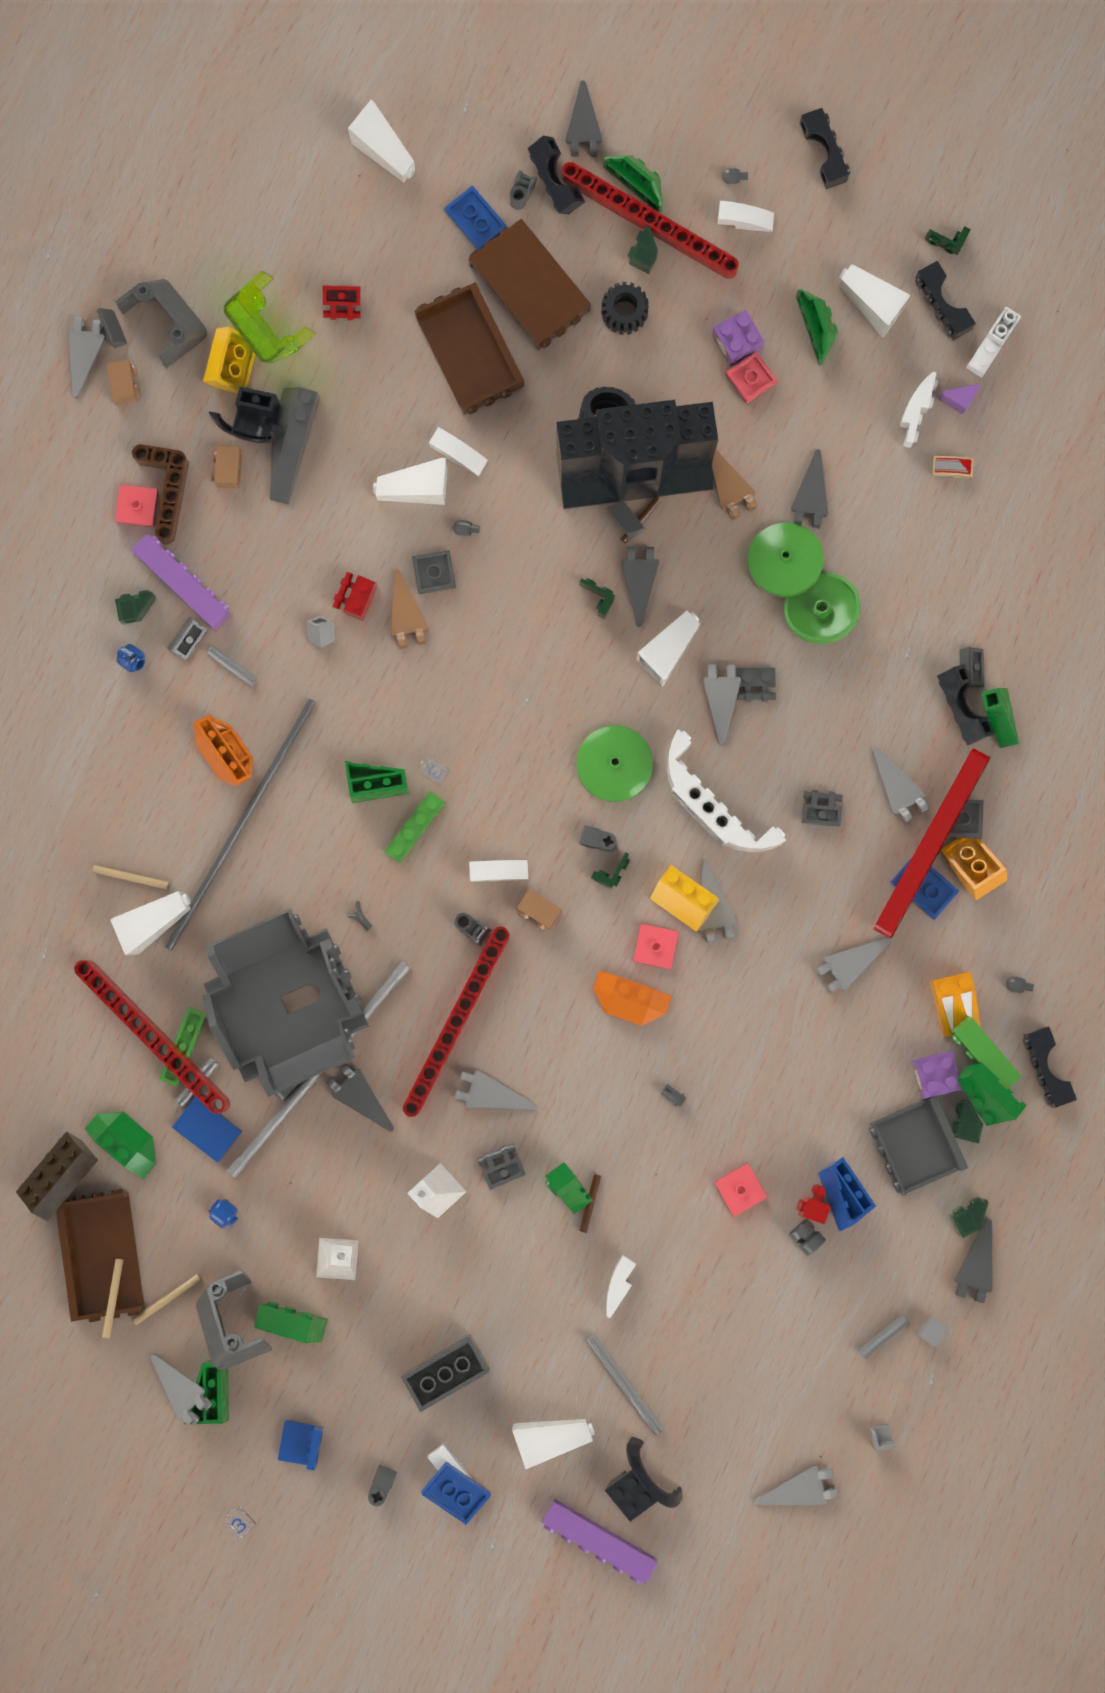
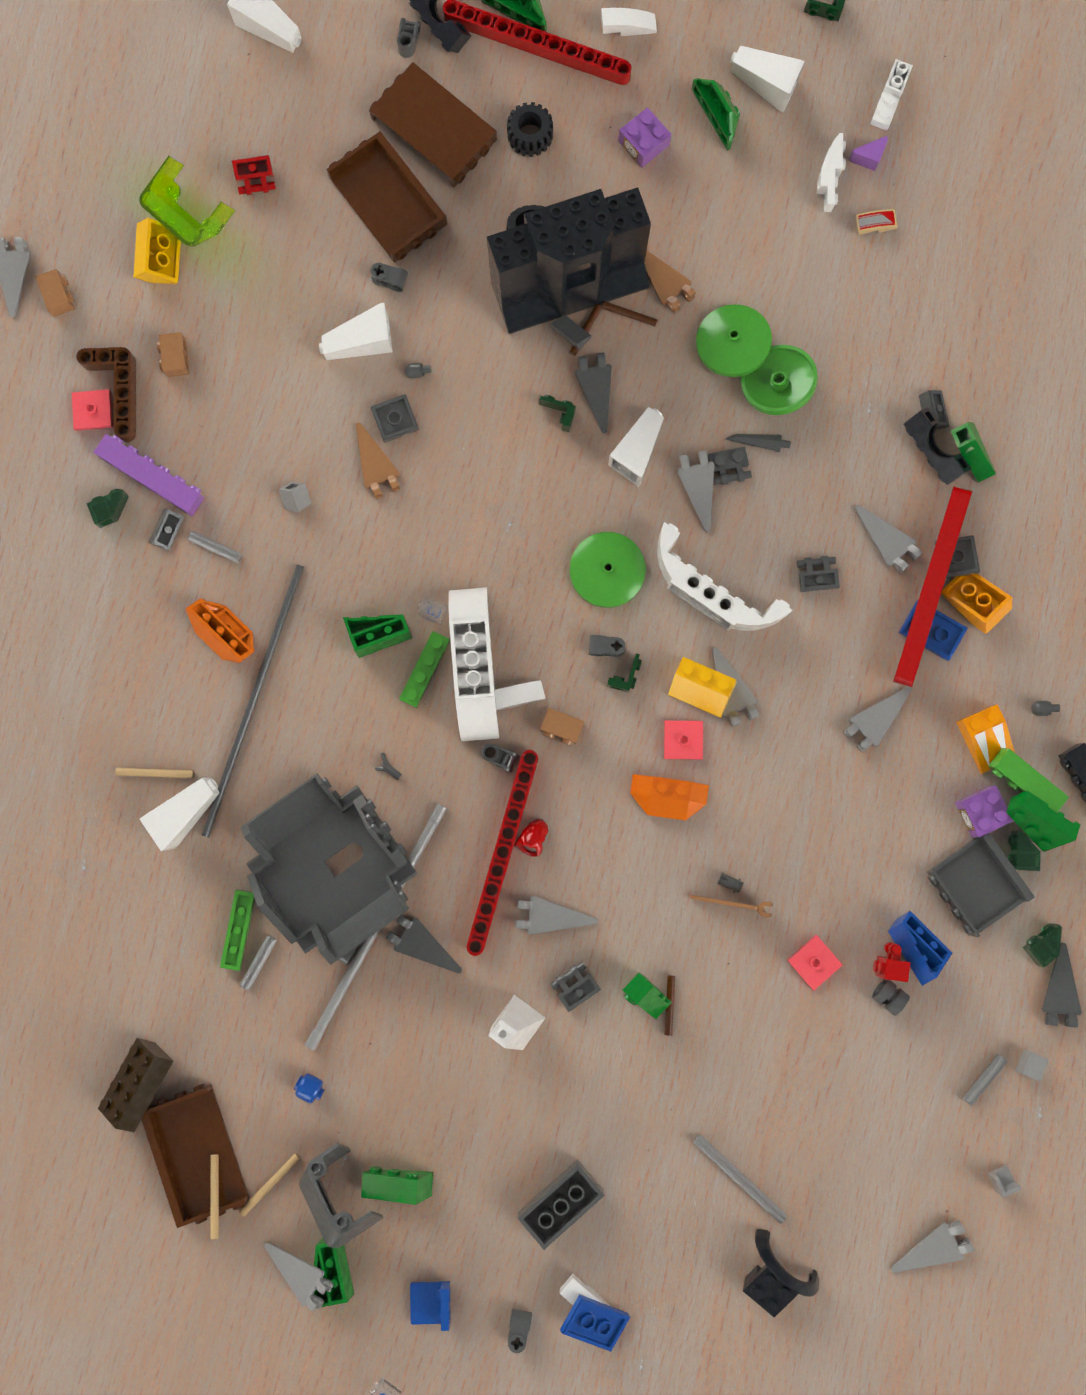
camera: 10 degrees left, 0 degrees up
(112, 327) = (35, 242): dark grey slope -> none
(124, 1141) = (197, 1036): green wedge -> none
(130, 658) = (113, 558): blue head -> none
(143, 1032) = (213, 926): red beam -> none
(188, 329) = (107, 233): dark grey windscreen -> none
(206, 1129) = (277, 1007): blue tile -> none
(253, 418) = (190, 301): black piece -> none
(296, 417) = (229, 316): dark grey wedge -> none
(337, 1258) = (431, 1110): white slope -> none
(359, 598) = (326, 457): red brick -> none
(457, 428) = (391, 277): none -> dark grey piece
(457, 451) = (395, 297): white slope -> none
(463, 831) = (472, 664): none -> white slope
(475, 217) = (367, 71): blue tile -> none
(489, 1013) = (533, 837): none -> red piece
(549, 1439) = (677, 1249): white slope -> none
(600, 1541) = (747, 1342): medium lavender brick -> none
(618, 1284) = (714, 1080): white slope -> none
(645, 252) = (538, 74): clear green slope -> none
(688, 512) = (630, 314): none -> reddish brown bar
(697, 1125) = (759, 908): none -> medium nougat flag
(751, 377) = (665, 173): coral plate -> none
(796, 666) = (769, 442): none -> dark grey bar
(812, 494) = (746, 273): dark grey flag -> none
(955, 320) = (849, 81): black arch -> none

